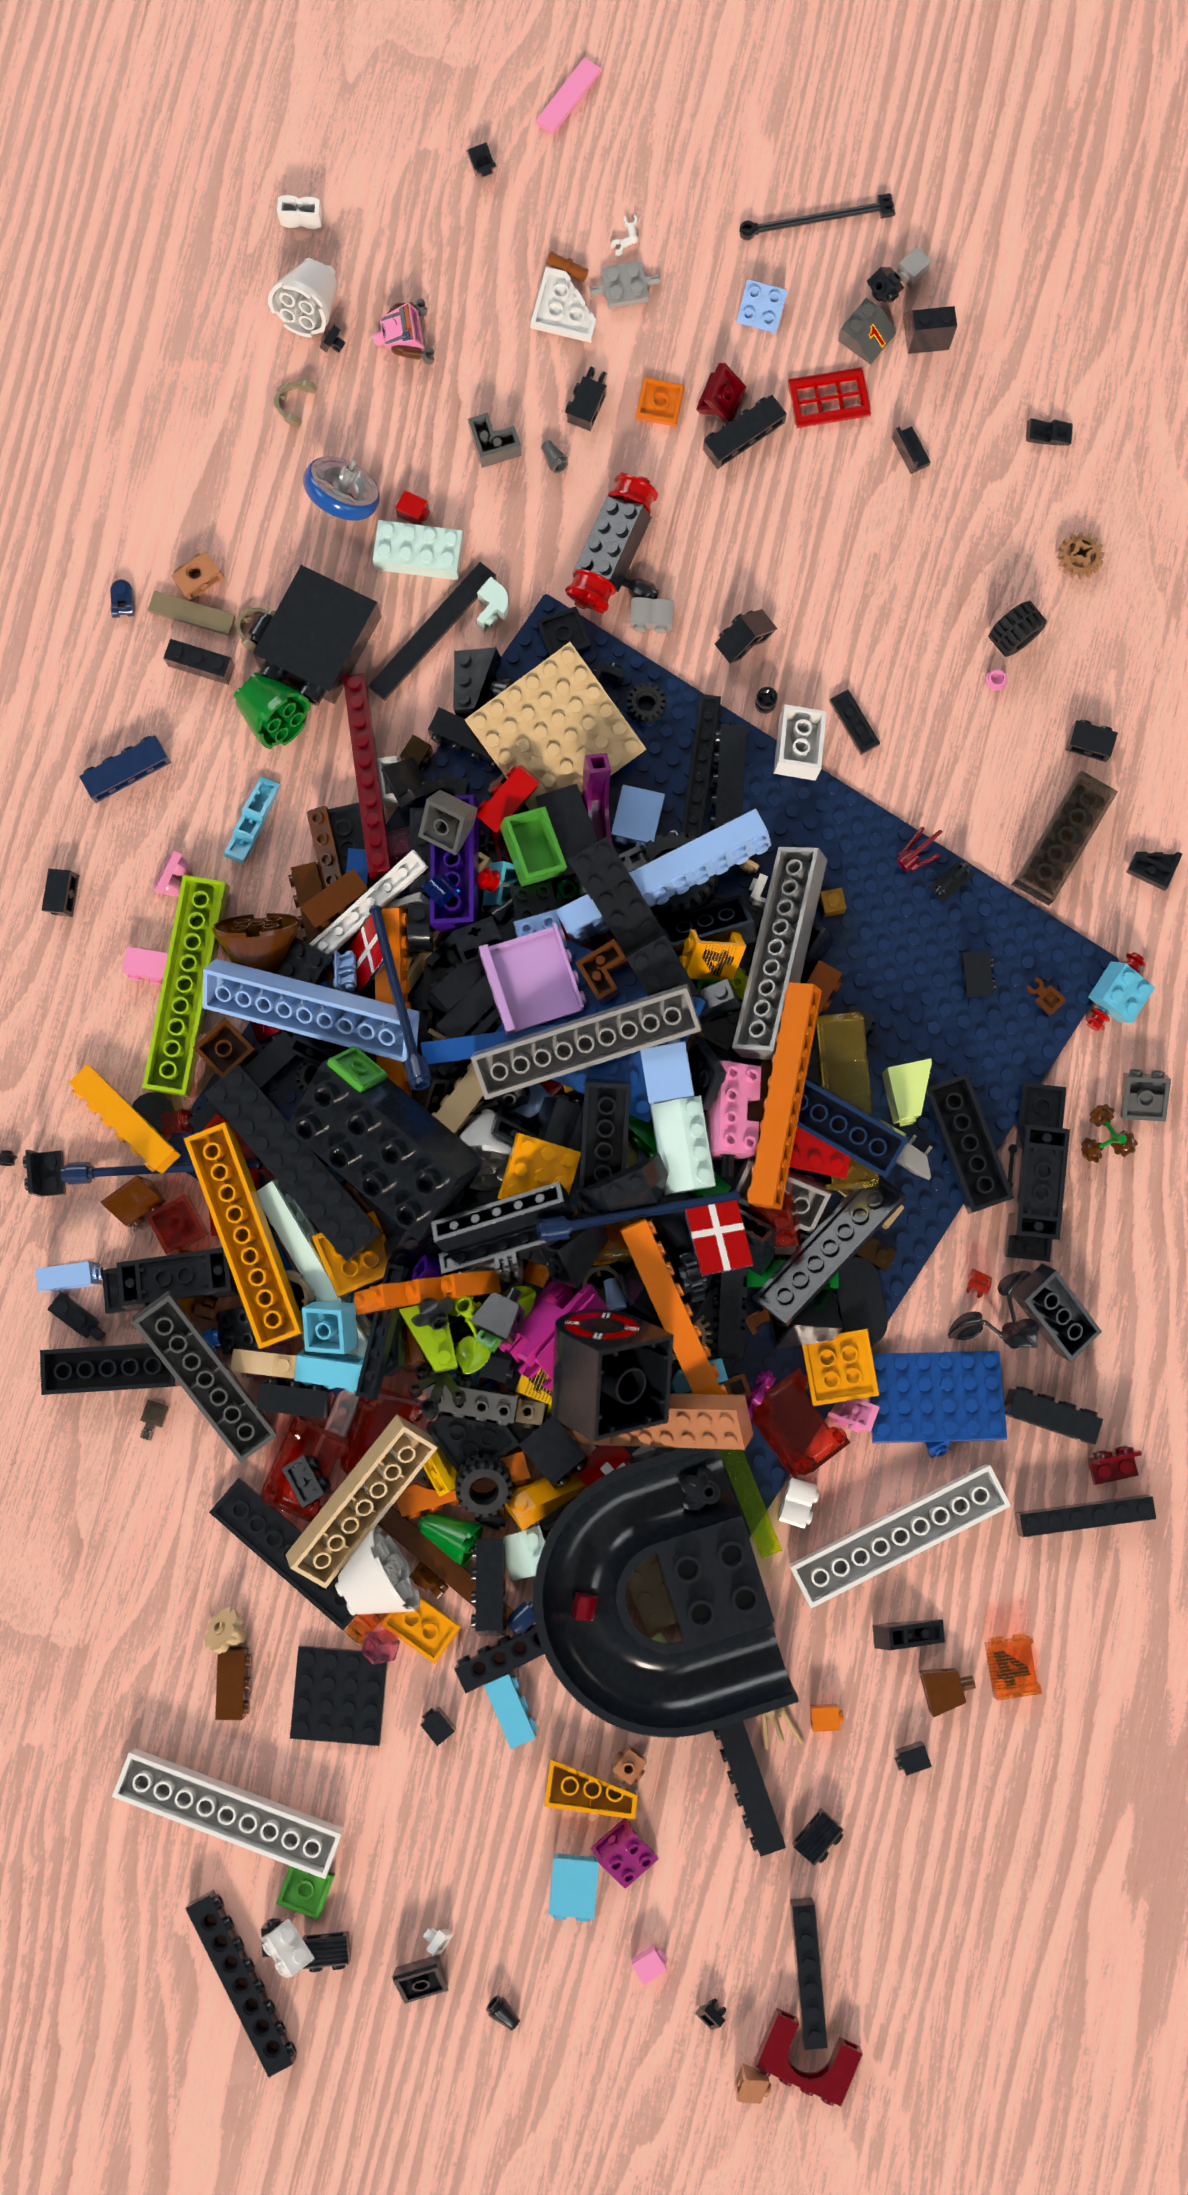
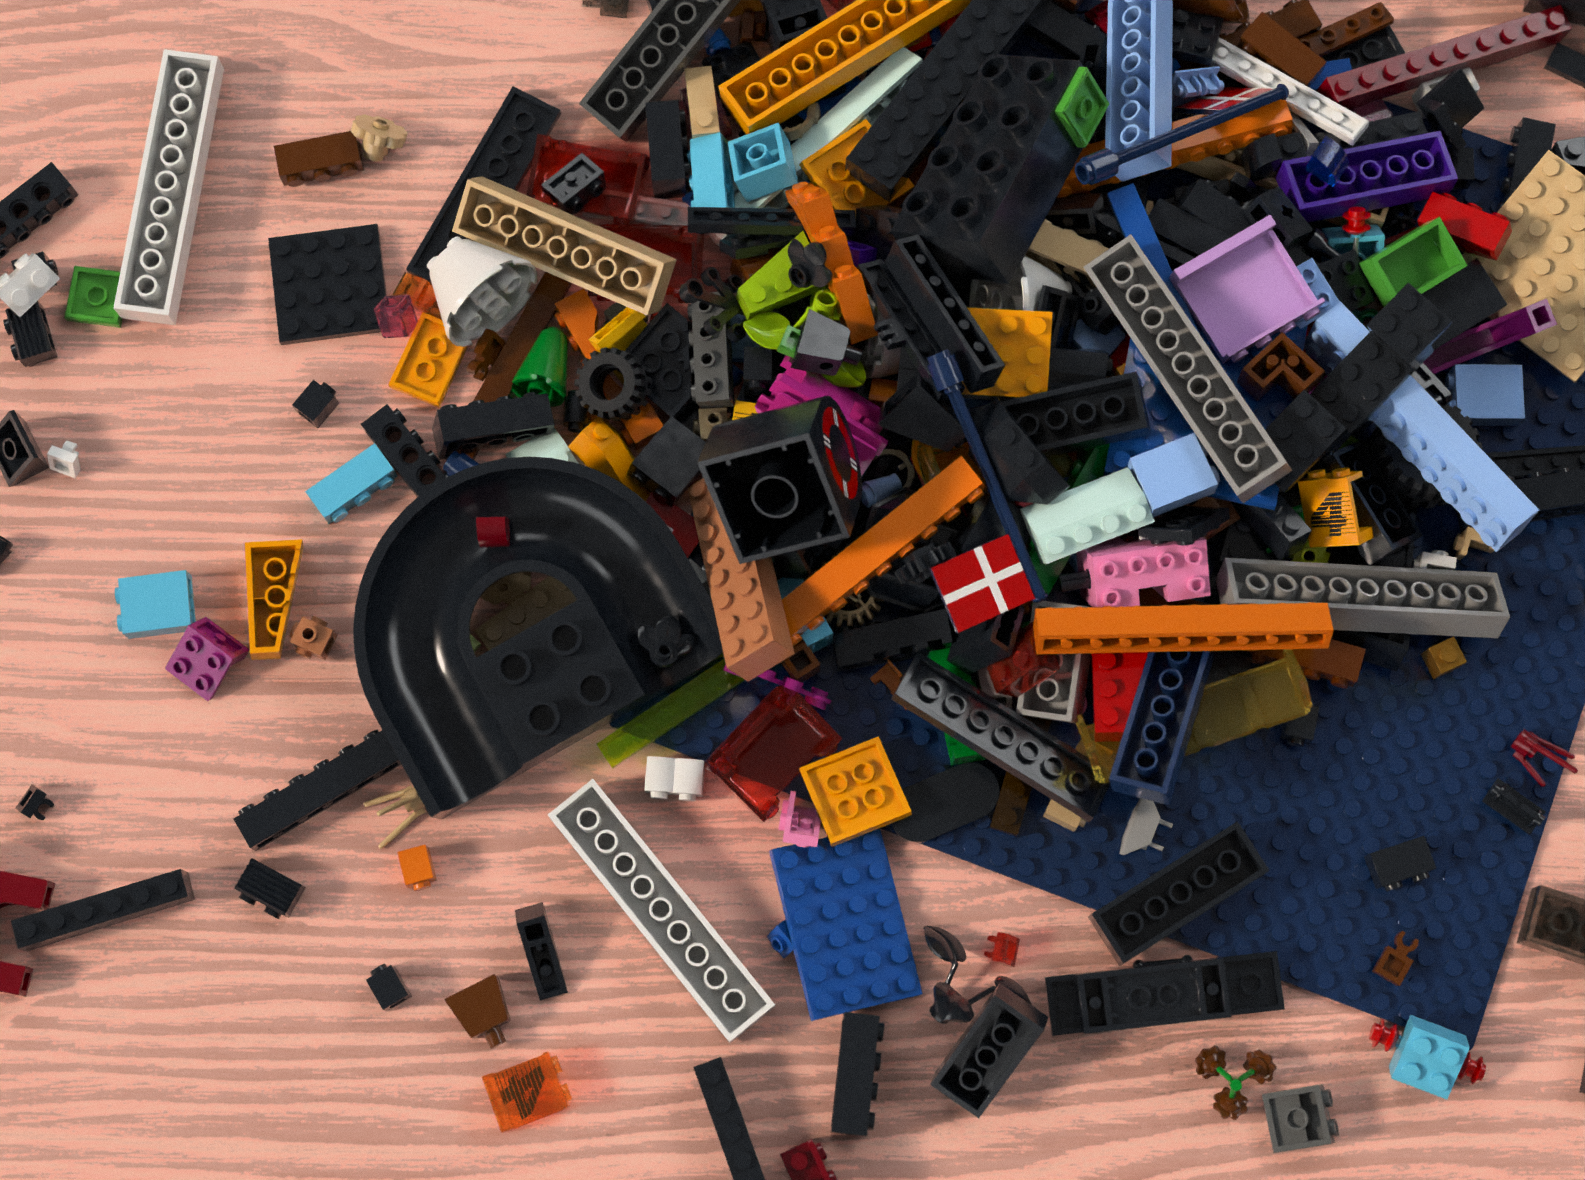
camera: 75 degrees right, 5 degrees down
(419, 750) = (1492, 118): dark brown brick -> none
(447, 821) = (1415, 151): dark grey slope -> none
(649, 1963) = (80, 715): bright pink brick -> none
(814, 1324) = (904, 739): black slope -> none
(906, 1090) = (1228, 800): yellowish green slope -> none

